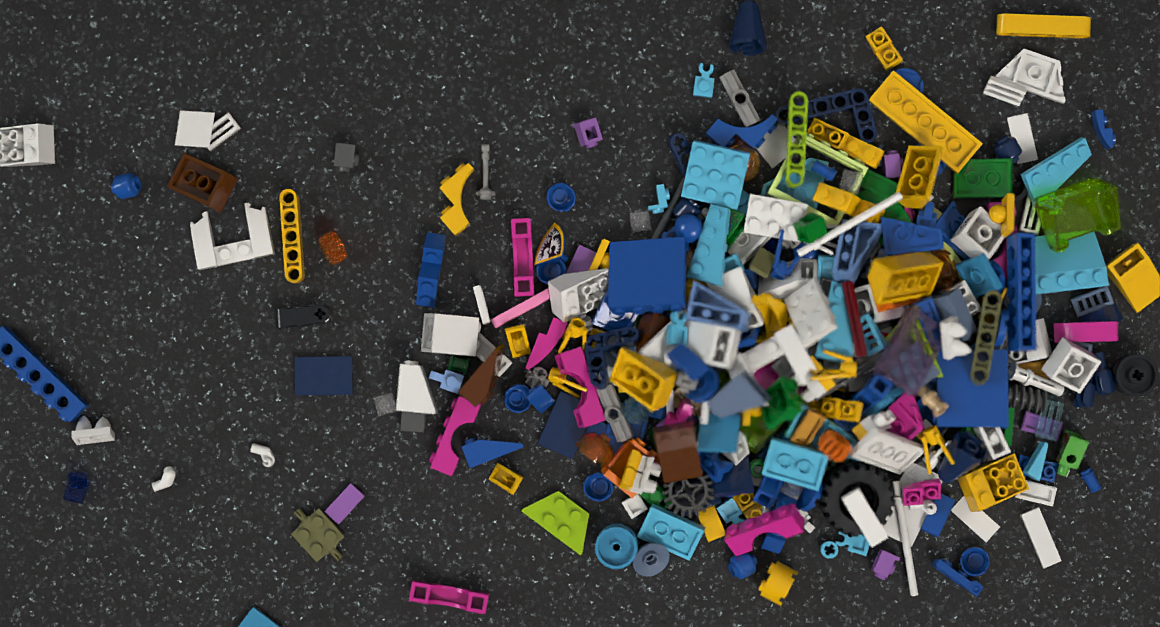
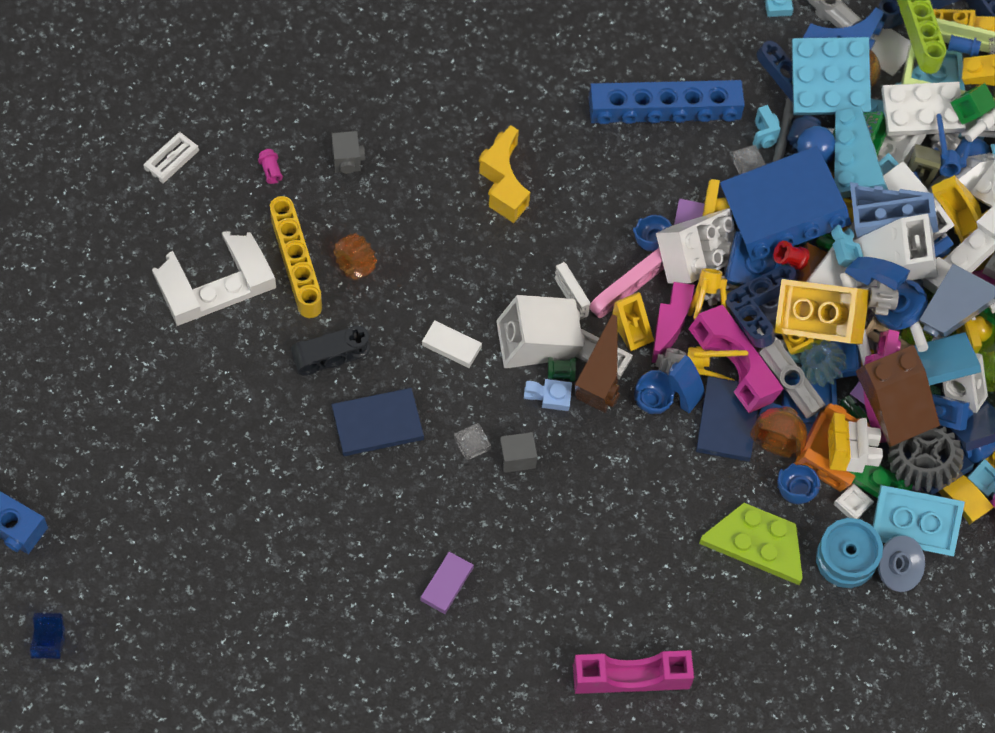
camera: 25 degrees left, 25 degrees down
(85, 434) = (59, 561): white tile -> none
(126, 185) = (56, 237): blue head -> none
(167, 479) = (180, 602): white arm -> none
(194, 129) = (137, 158): white sticker -> none
(202, 182) = (161, 215): reddish brown slope -> none
(265, 452) = (316, 537): white arm -> none
(288, 155) = (268, 160): none -> dark pink pin
(318, 534) = (419, 632): olive plate -> none
(388, 326) = (451, 344): none -> white tile
(414, 390) = (513, 404): white slope -> none
(430, 269) = (493, 262): blue arch -> none
(445, 458) = (577, 489): dark pink arch -> none
(485, 193) = (540, 161): light grey piece -> none
(486, 450) = (630, 468): blue slope -> none
(505, 478) = (668, 500): yellow slope -> none
(522, 257) = (604, 205): dark pink arch -> none
(544, 147) = (676, 94): none -> blue brick
(551, 246) = (645, 202): shield -> none
(561, 197) = (640, 146): blue hair -> none
(592, 127) = (652, 67): medium lavender brick -> none
(638, 322) = (788, 254): none -> red bush

